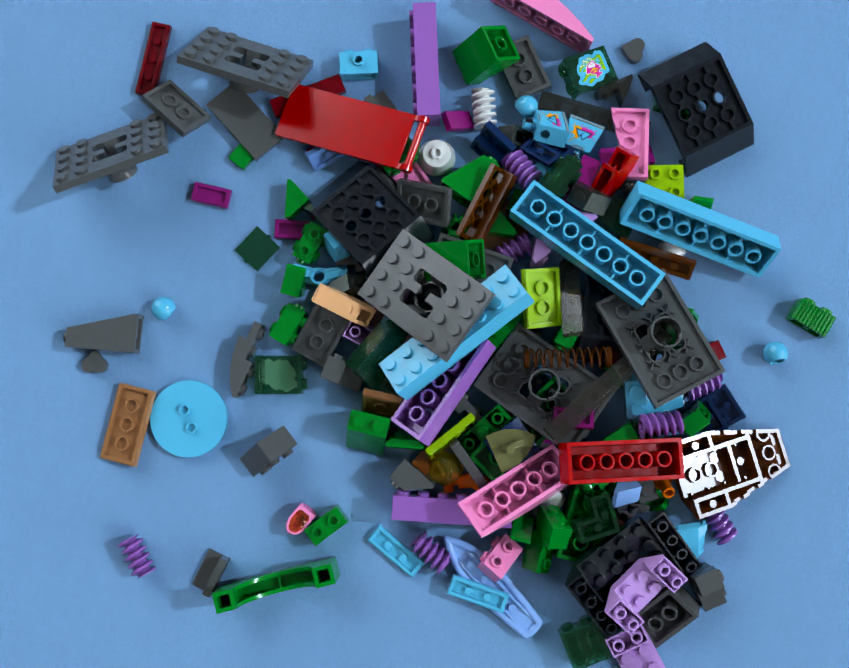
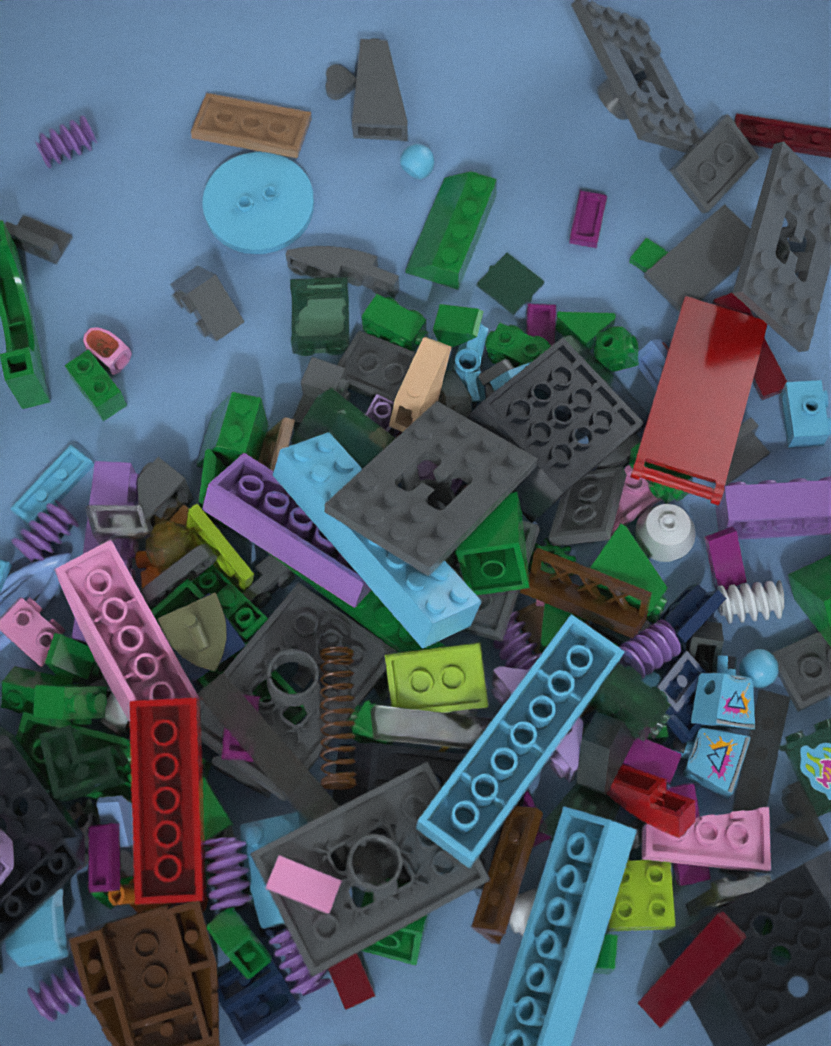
camera: 90 degrees right, 15 degrees down
(216, 285) = (453, 228): none -> green slope
(314, 174) = (616, 349): none -> green brick
(327, 258) = (495, 371): none -> dark grey tile
(439, 501) = (116, 522): none -> clear smoke slope
(648, 501) = (104, 857): none -> magenta tile
(661, 132) = (725, 892): none -> clear smoke wing
(675, 376) = (303, 884): none -> bright pink tile
(708, 156) = (691, 969): none -> dark red tile

